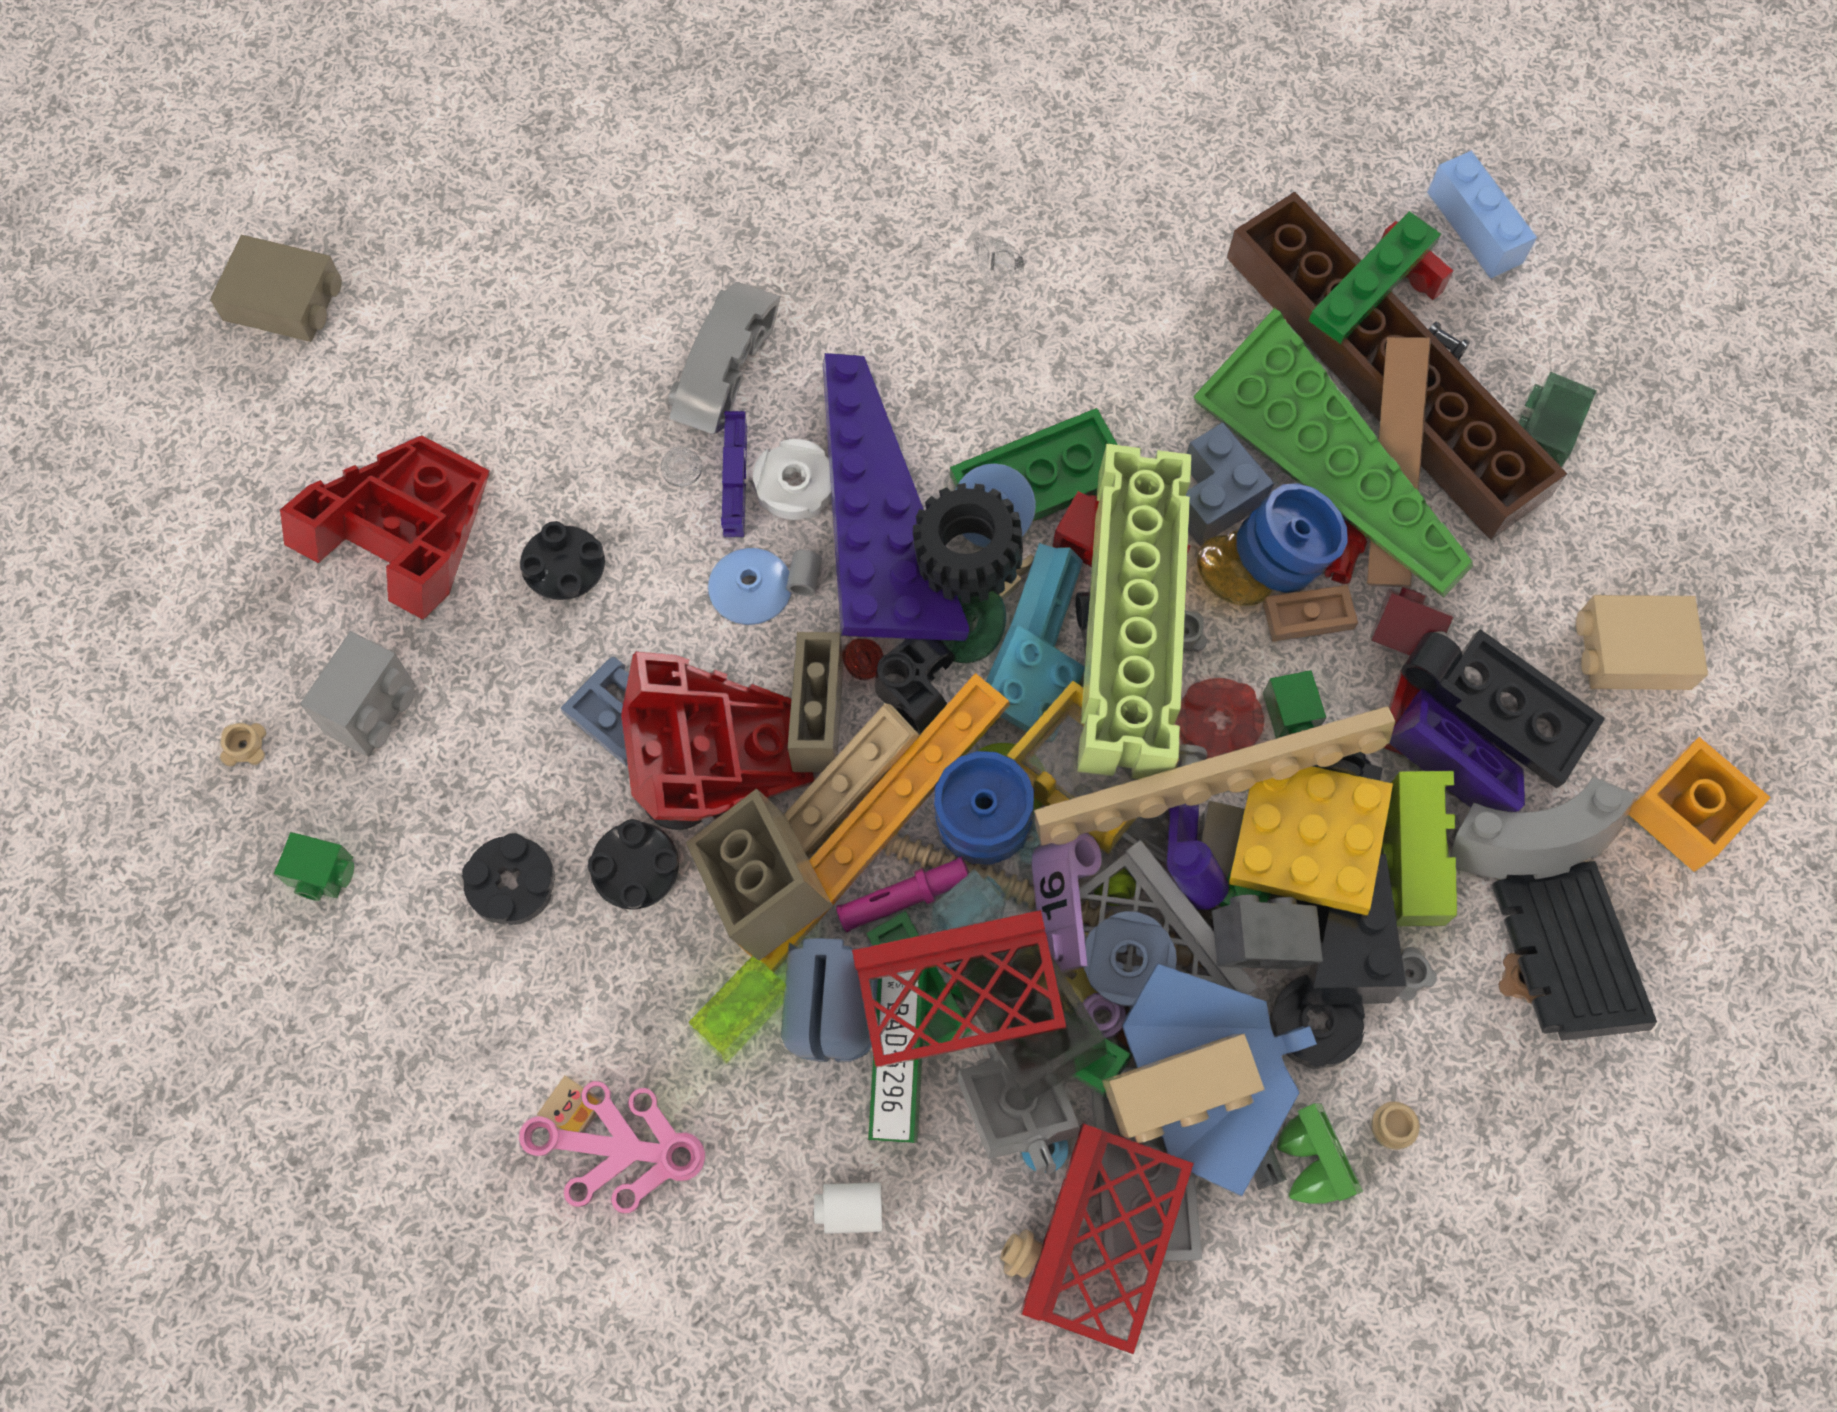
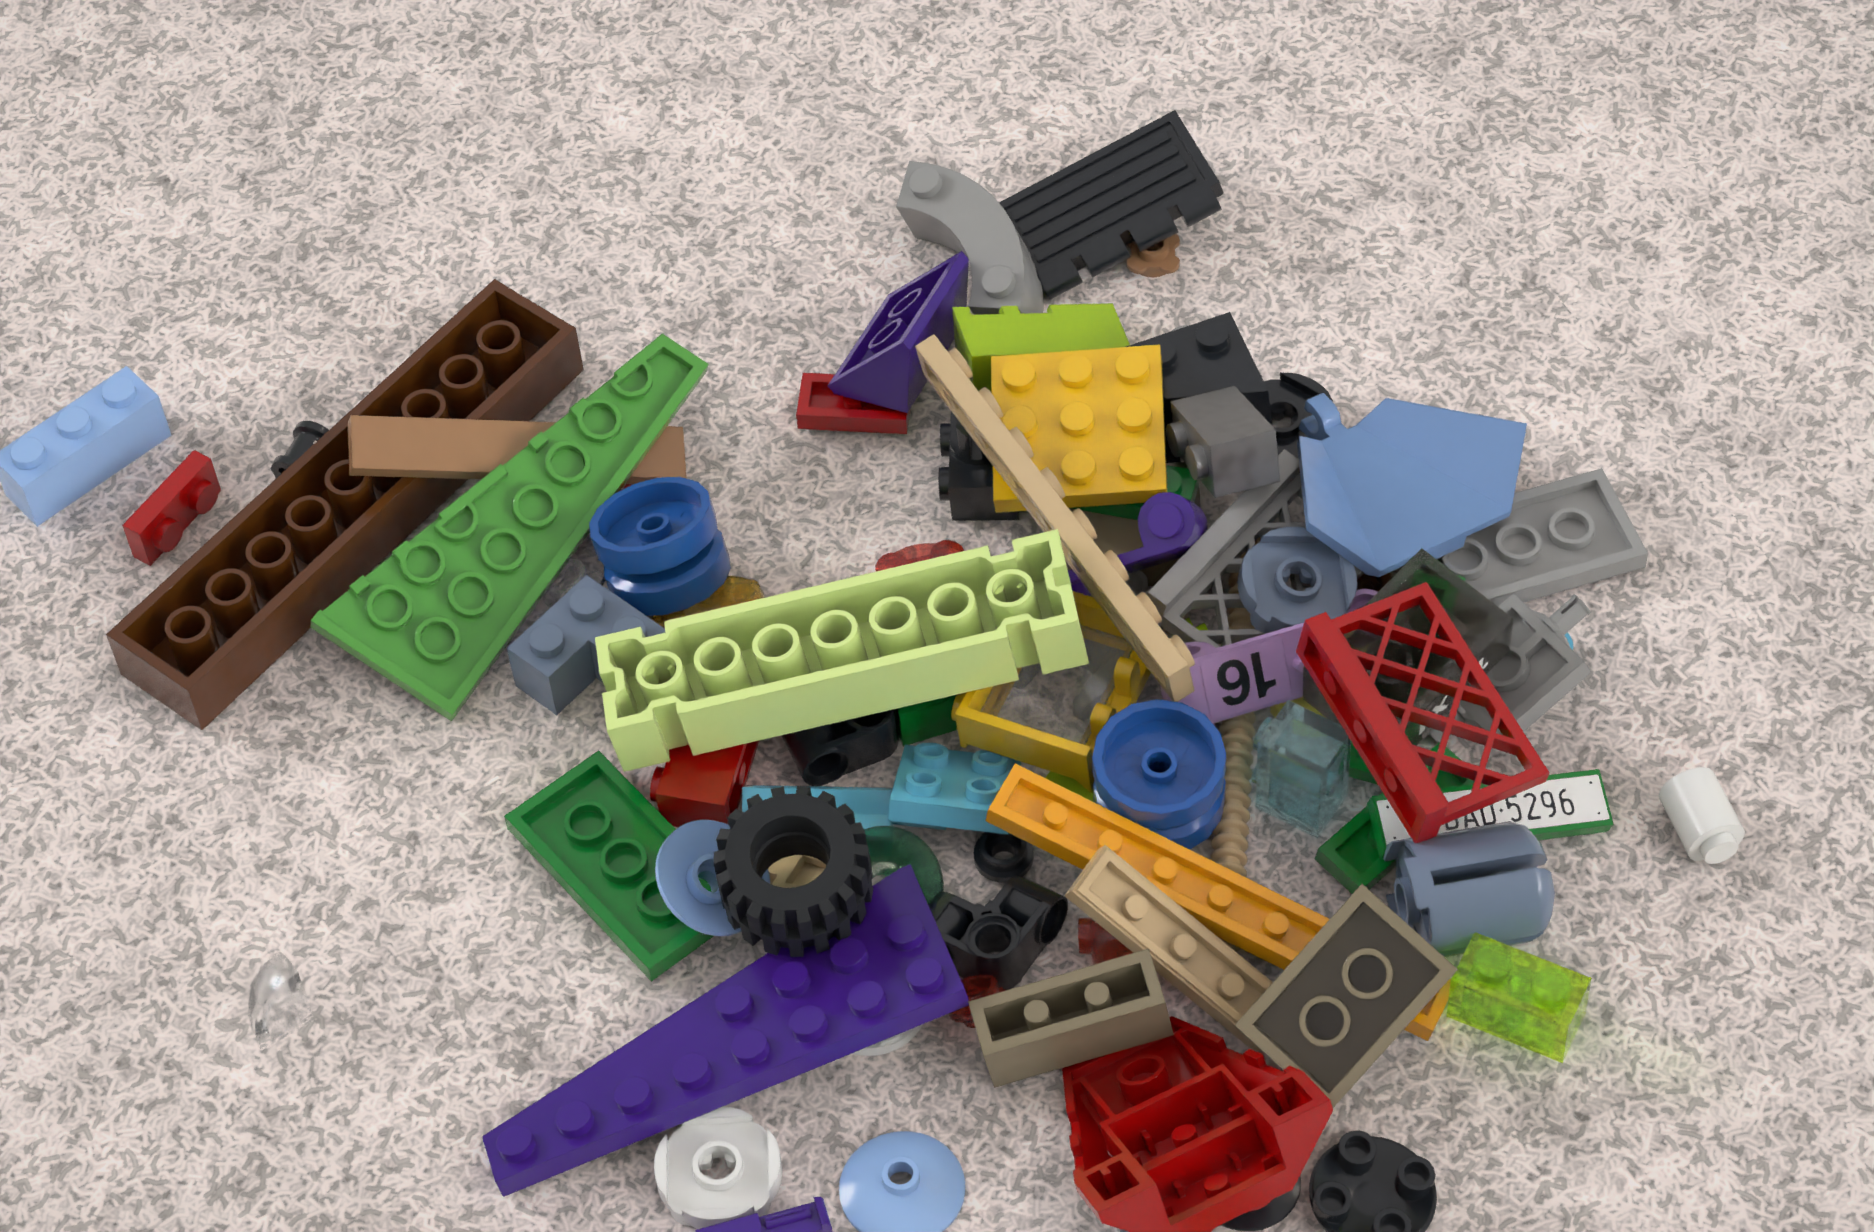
camera: 100 degrees left, 15 degrees down
(567, 1108) = (1721, 1167): tan tile -> none
(622, 1148) = (1750, 1087): bright pink plant -> none
(804, 572) = (866, 1114): light grey hinge -> none
(901, 895) = (1279, 839): dark pink pin -> none
(1020, 1254) = (1674, 637): tan plate -> none
(1065, 1226) = (1622, 591): red fence -> none
(1183, 1087) = (1430, 493): tan brick -> none
(1293, 703) = (888, 513): green brick -> none
(1310, 613) = (751, 527): medium nougat plate -> none
(1331, 1175) = (1454, 375): bright green tile -> none
(1374, 277) = (242, 513): green plate -> none
(1395, 1125) = (1371, 334): tan plate -> none
(1406, 619) = (735, 419): dark red brick -> none
(1439, 669) = (829, 334): black hinge -> none
(1557, 414) = (389, 320): clear green brick -> none
(1642, 642) = (691, 201): tan brick -> none
(1697, 804) = (890, 117): light orange brick -> none

